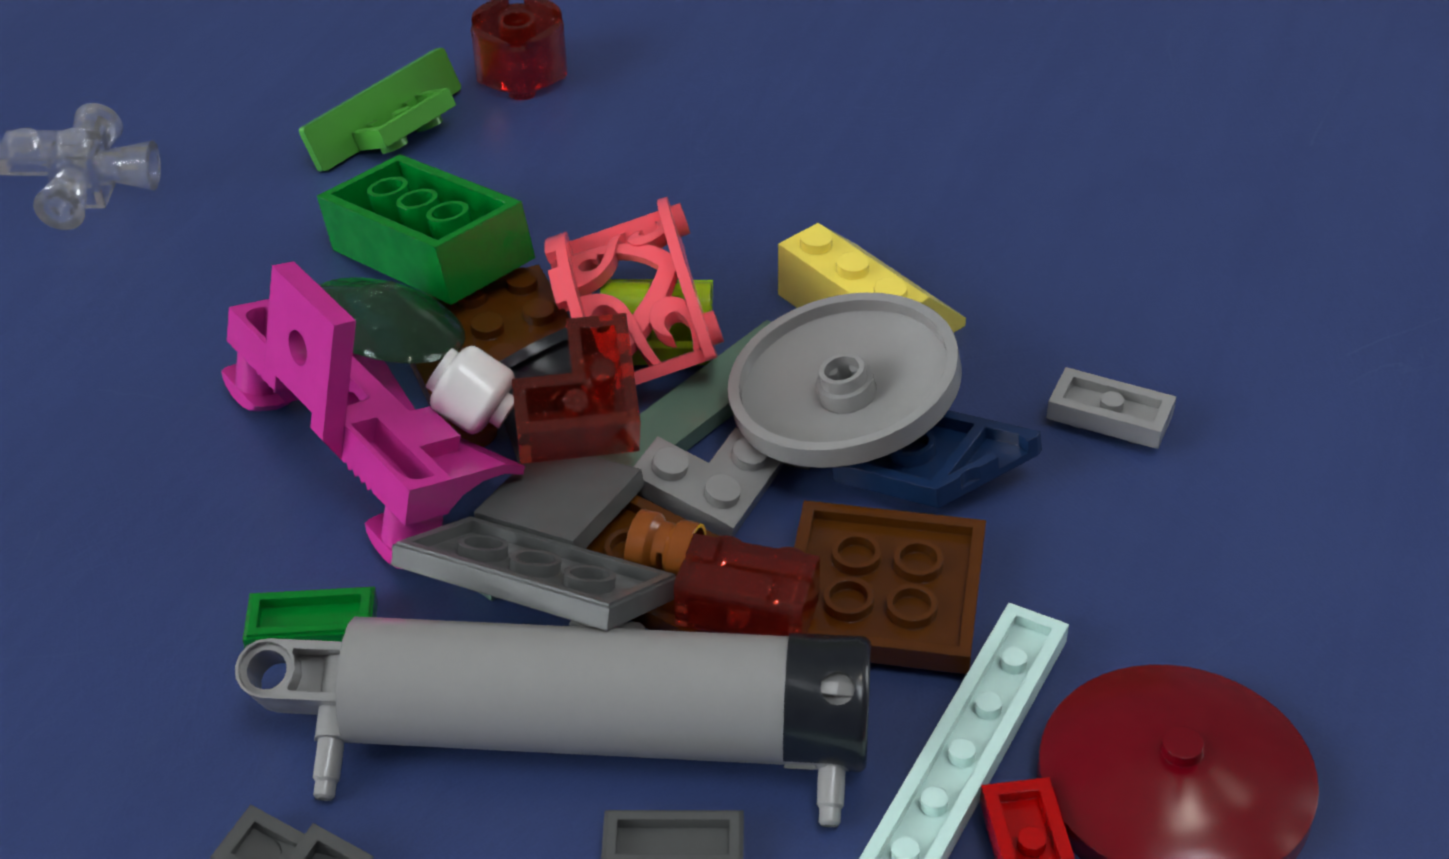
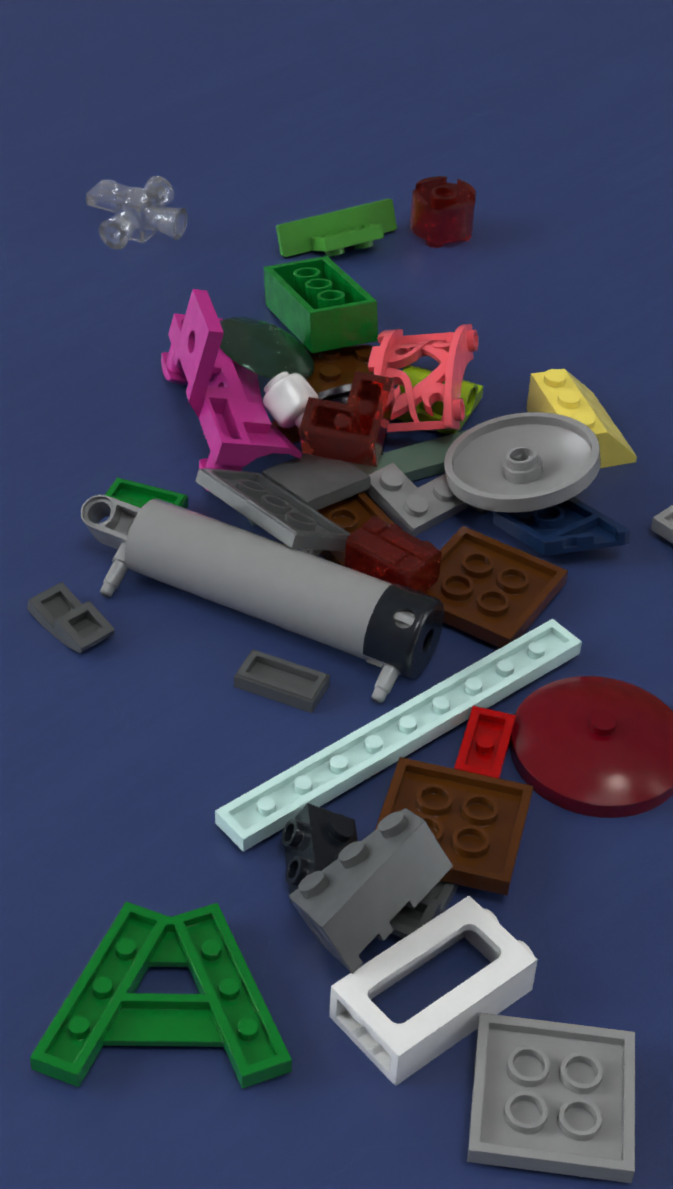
camera: 20 degrees right, 0 degrees up
(659, 542) = (353, 513): dark orange wheel -> none

